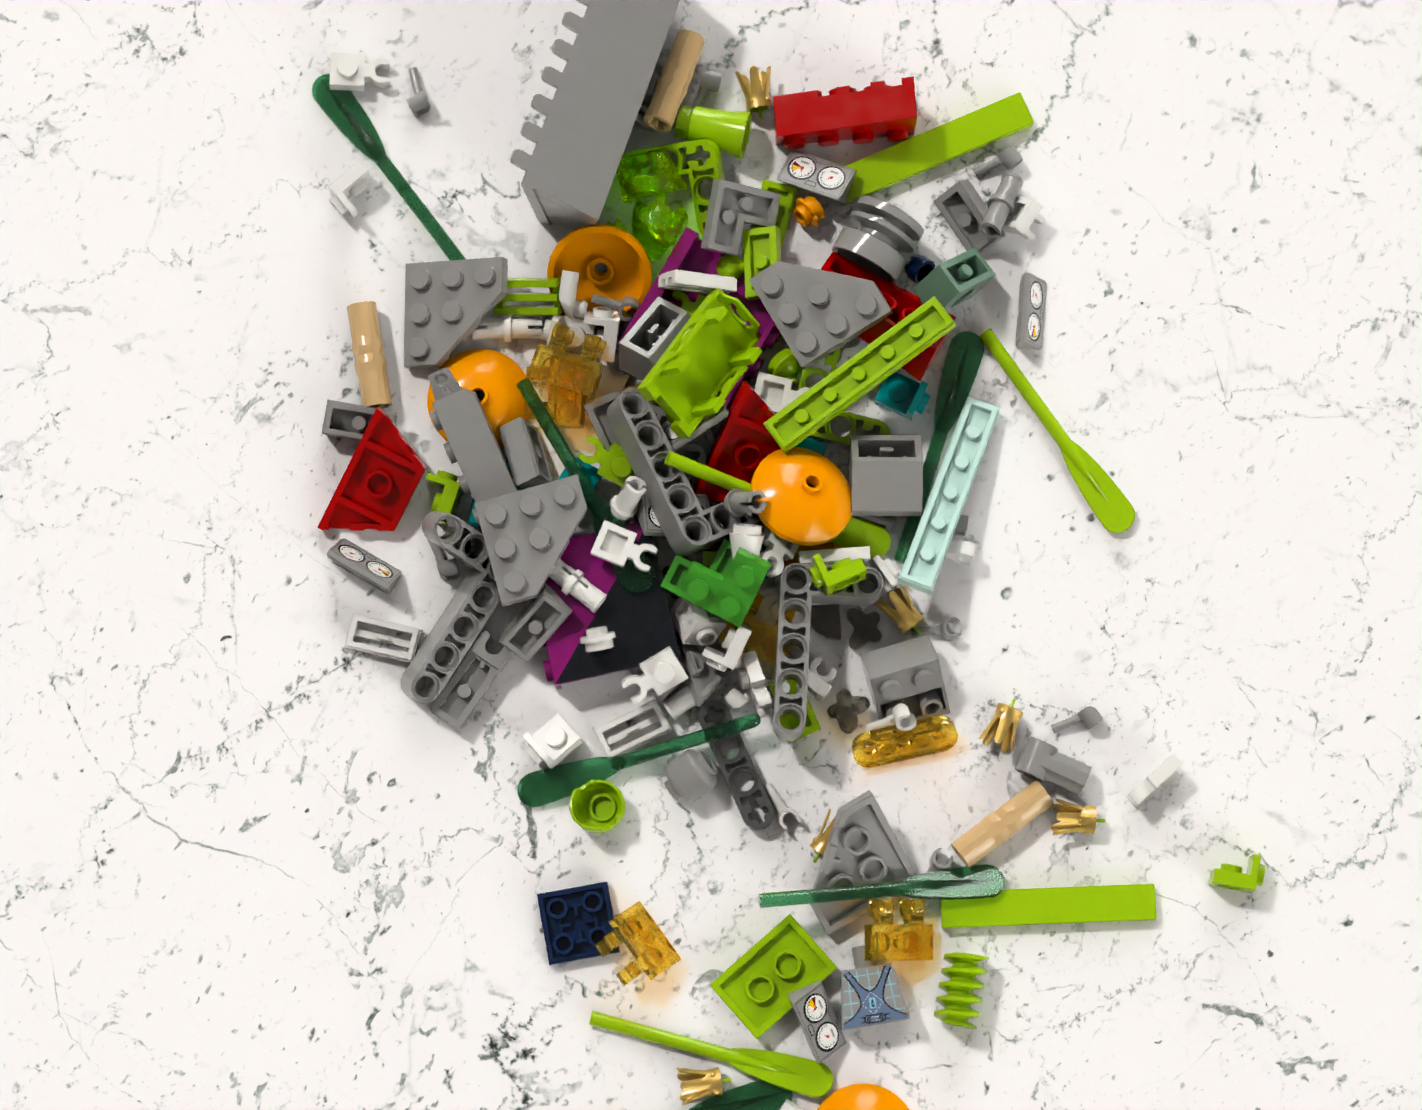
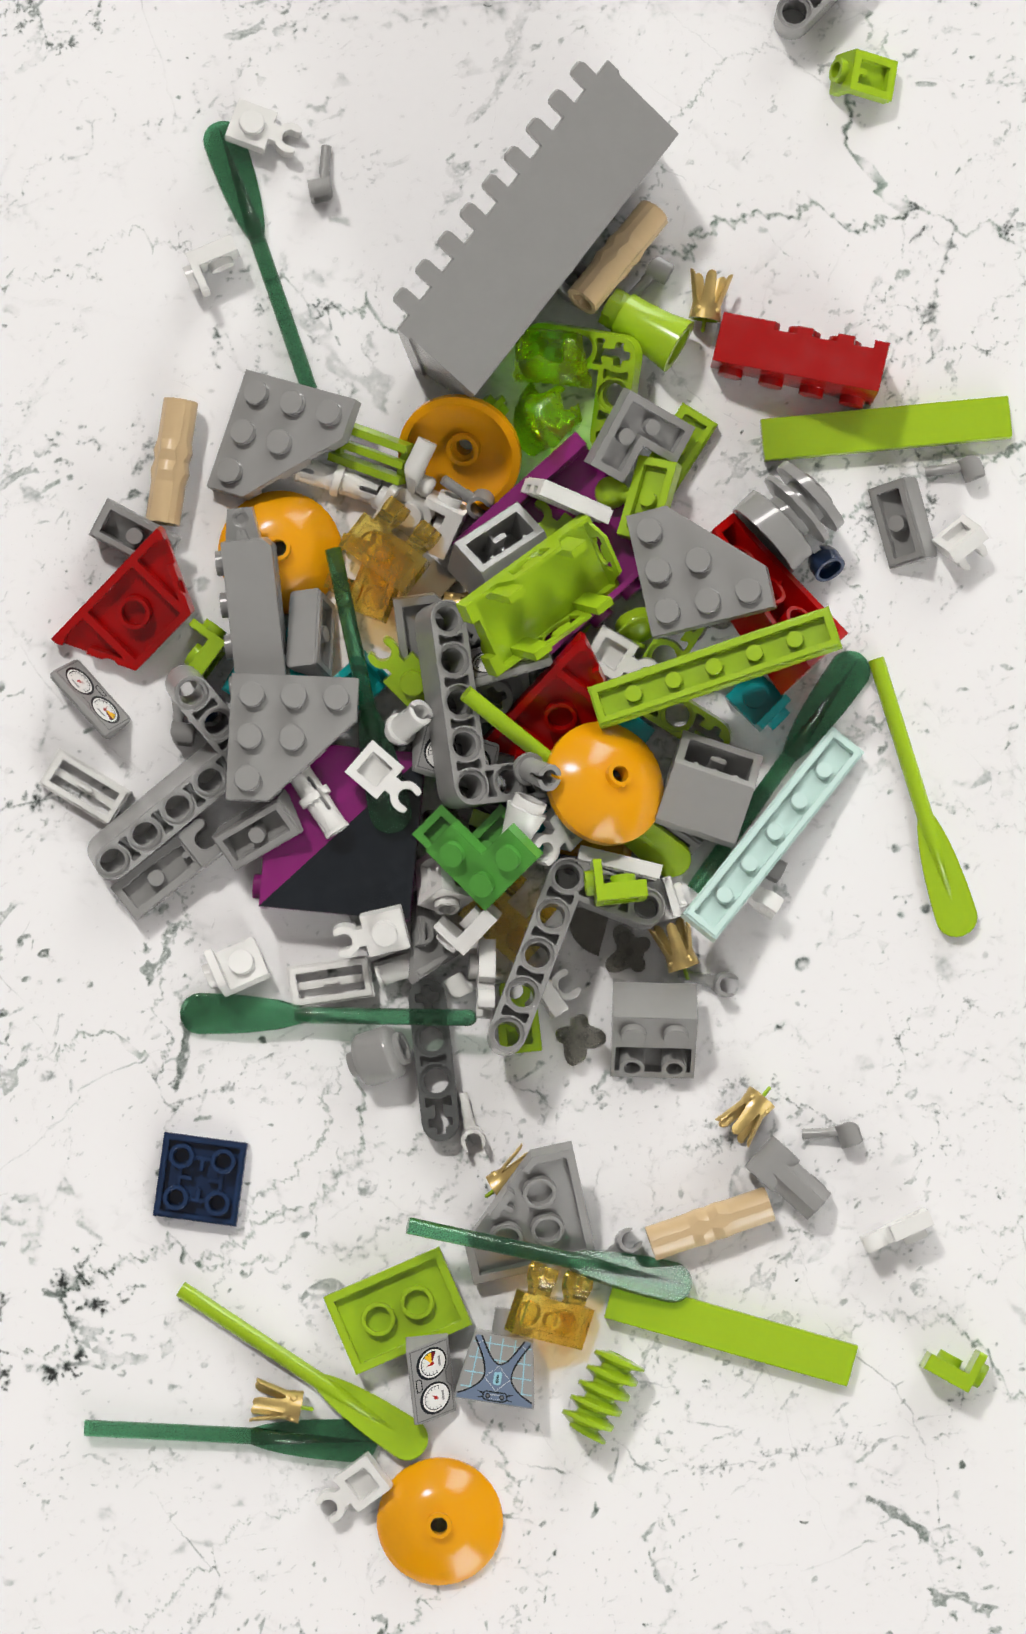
camera: 20 degrees right, 5 degrees up
(597, 806) = (262, 1056): lime hair -> none
(598, 639) = (322, 871): white plate -> none
(645, 942) = (266, 1225): clear yellow plate -> none
(808, 212) = (721, 457): light orange plate -> none
(817, 175) = (744, 419): slope -> none
(893, 745) = (630, 1095): clear yellow plate -> none
(900, 716) = (635, 1069): white hand -> none
(955, 279) = (860, 591): sand green brick -> none
(1001, 205) = (942, 520): light grey pin -> none
(1031, 312) = (936, 653): light grey slope -> none
(1074, 818) = (797, 1247): pearl gold piece -> none

